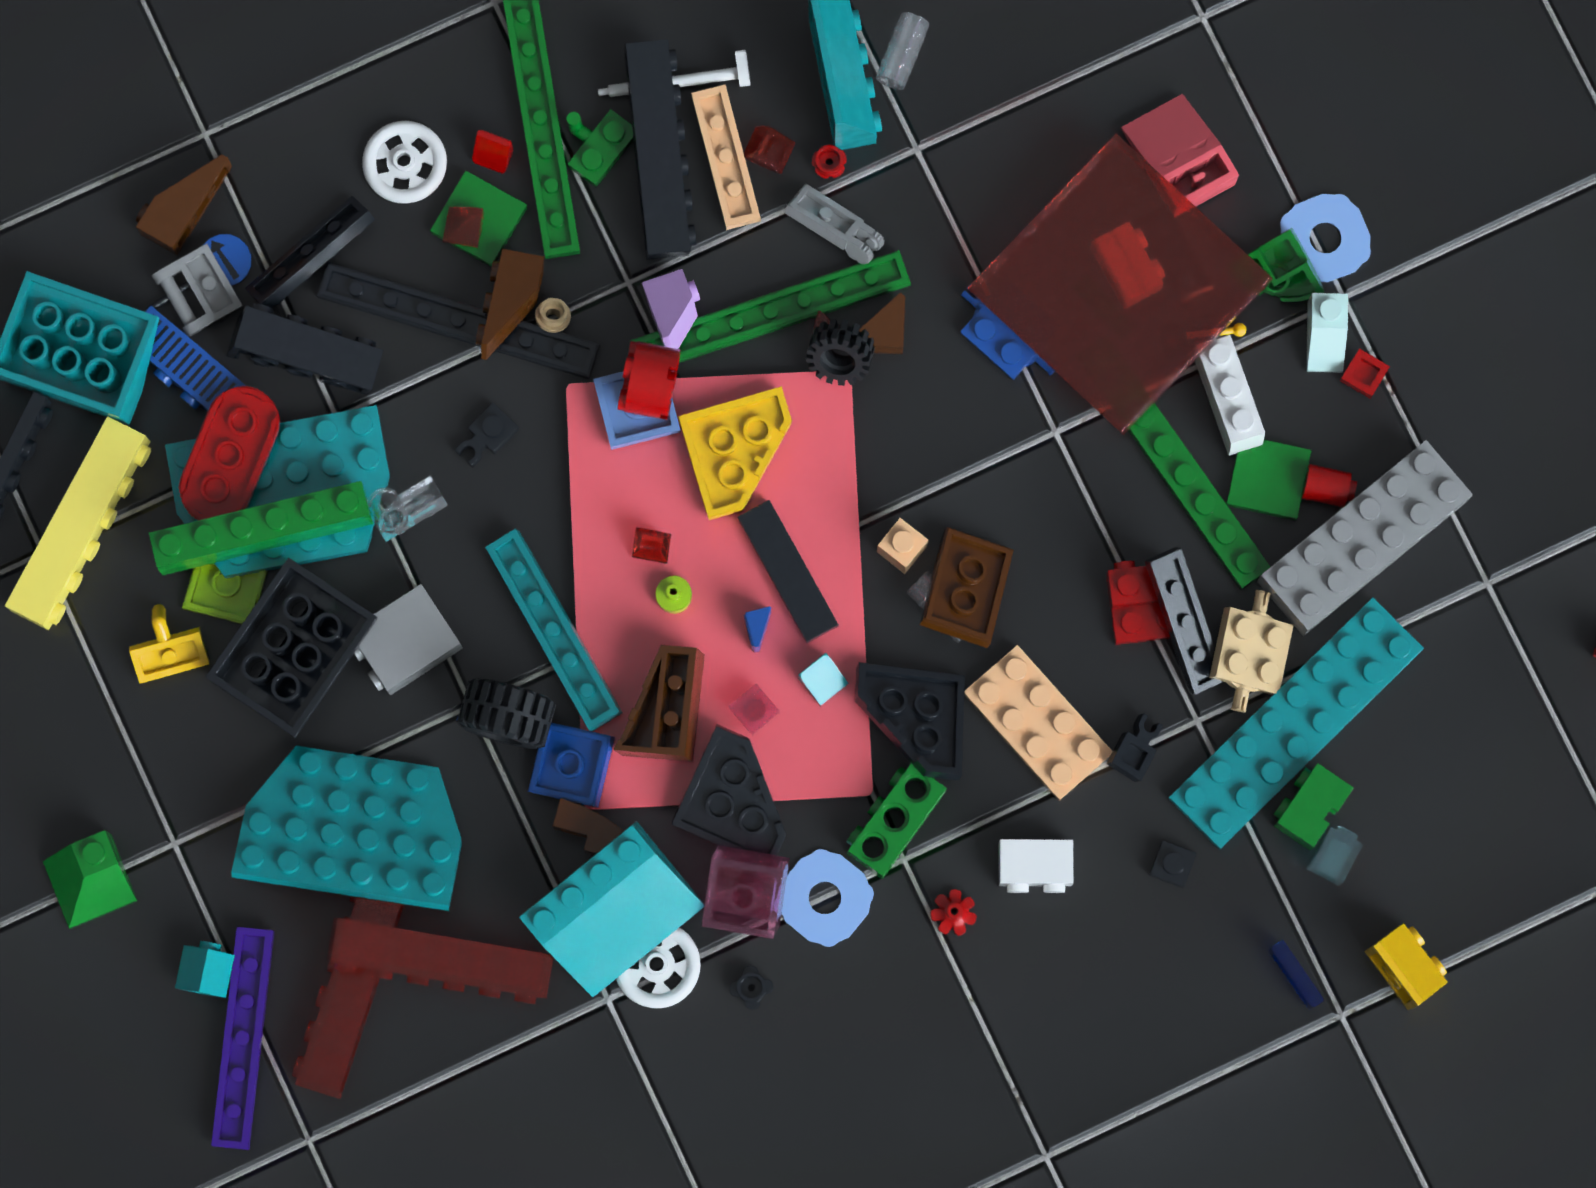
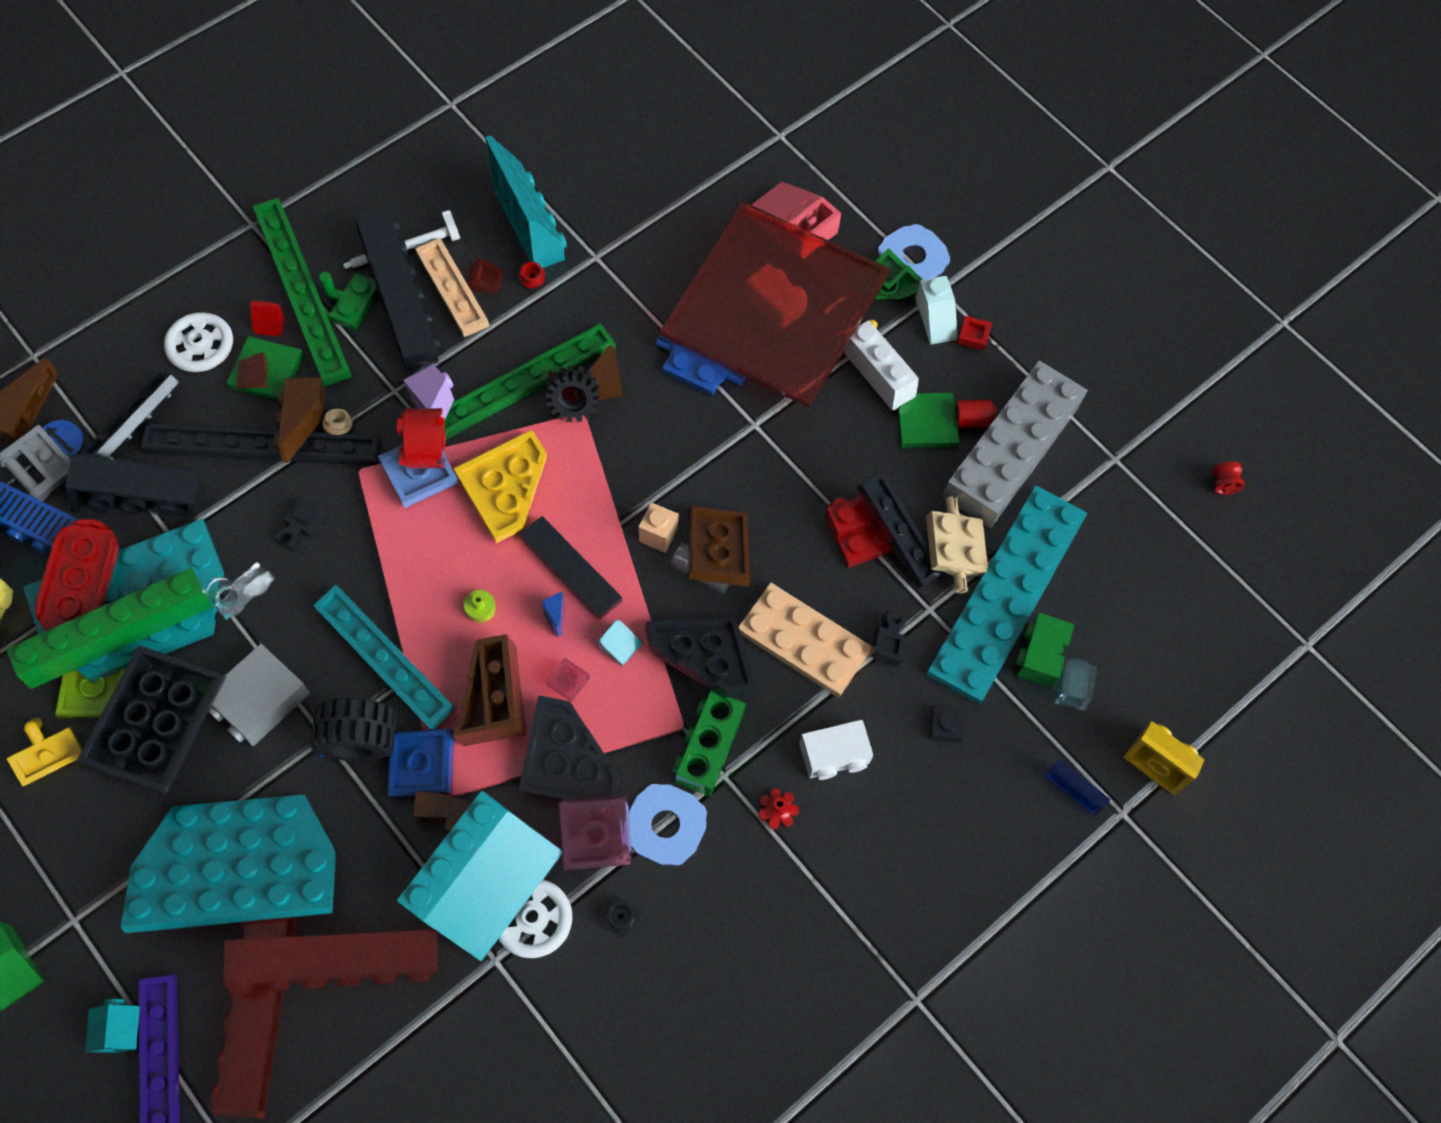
camera: 20 degrees left, 15 degrees down
(651, 545) = (452, 570): clear red slope -> none
(834, 224) = (547, 314): light grey hinge -> none
(902, 51) = (569, 192): clear axle -> none
(1198, 497) = (878, 445): green plate -> none

